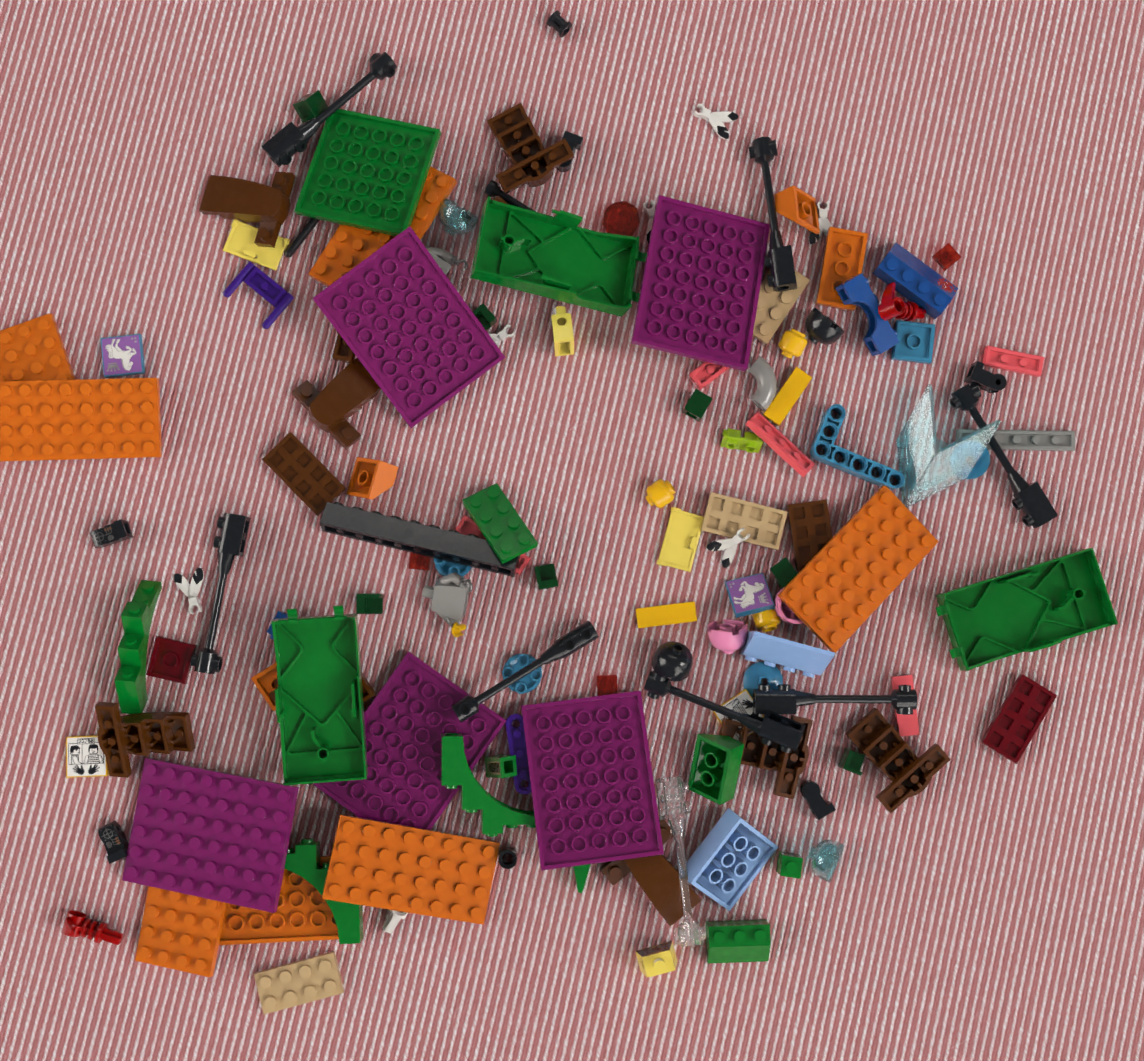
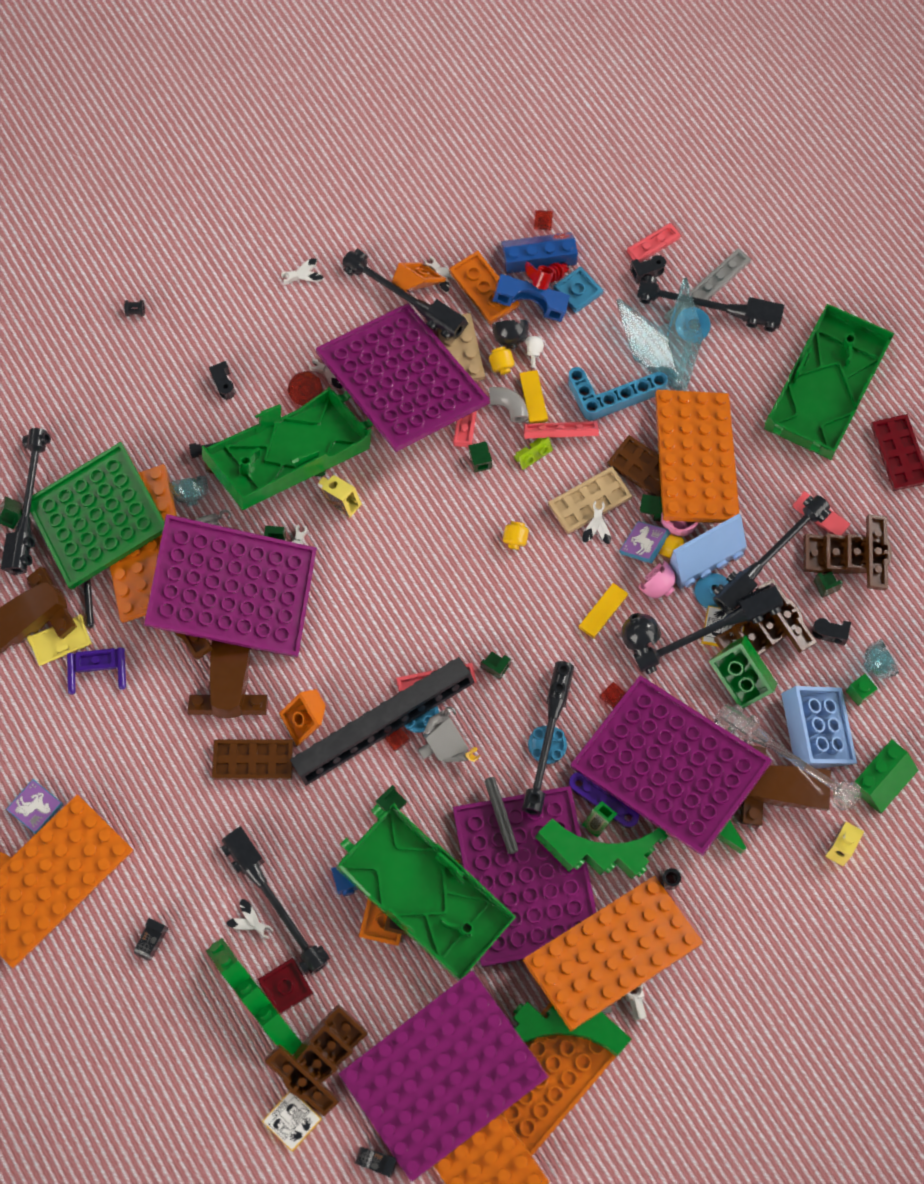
camera: 35 degrees left, 15 degrees down
(299, 982) = (617, 1125): tan plate -> none
(434, 693) = (501, 815): none -> dark grey axle
(499, 523) = (427, 655): green plate -> none
(525, 150) = (193, 404): reddish brown slope -> none
(681, 533) = (557, 549): light yellow door -> none
(828, 357) = (534, 348): none -> white piece

